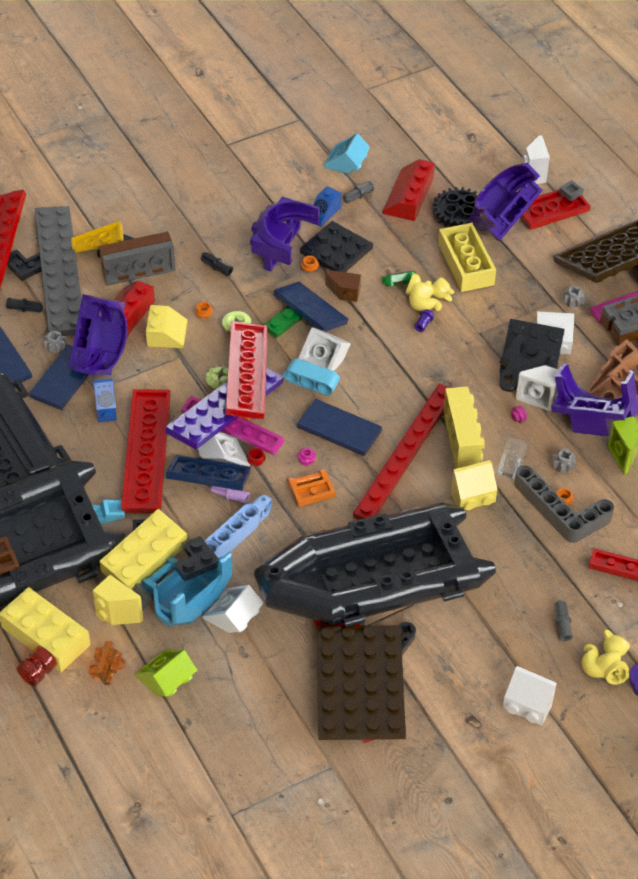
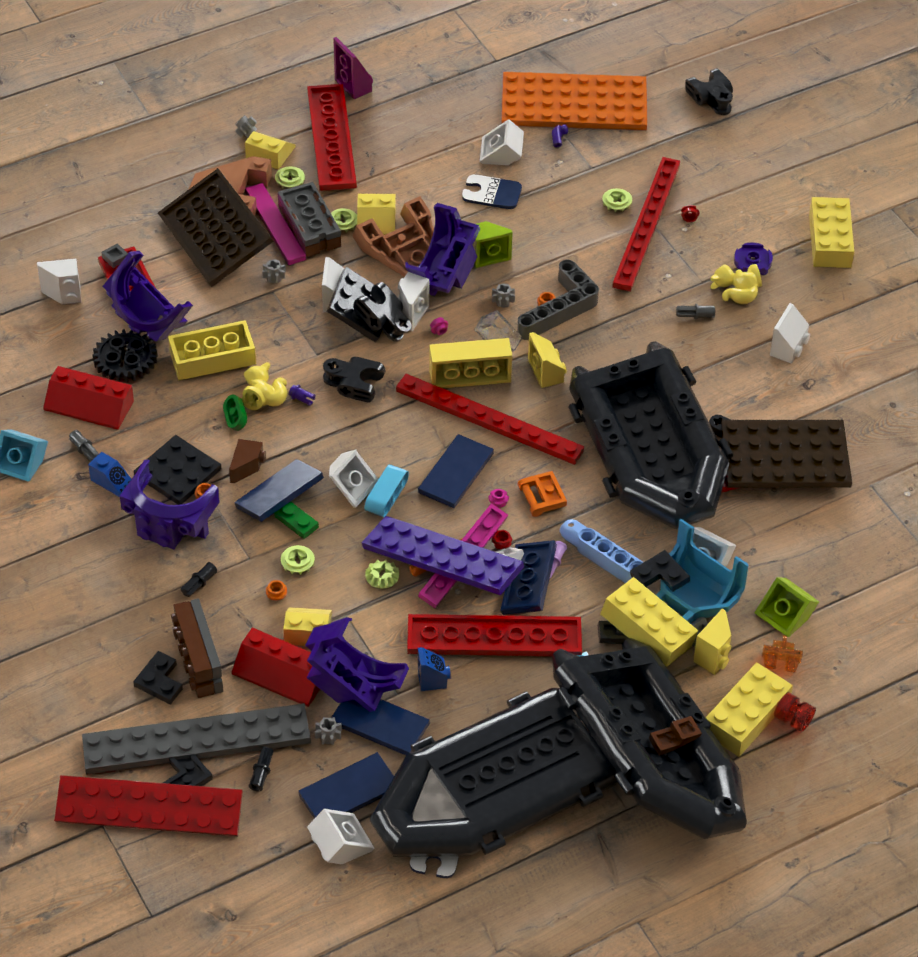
camera: 90 degrees left, 0 degrees up
(101, 236) = (155, 689): yellow wing -> none
(246, 370) = (391, 534): plate -> none
(446, 351) = (350, 375): none -> black piece

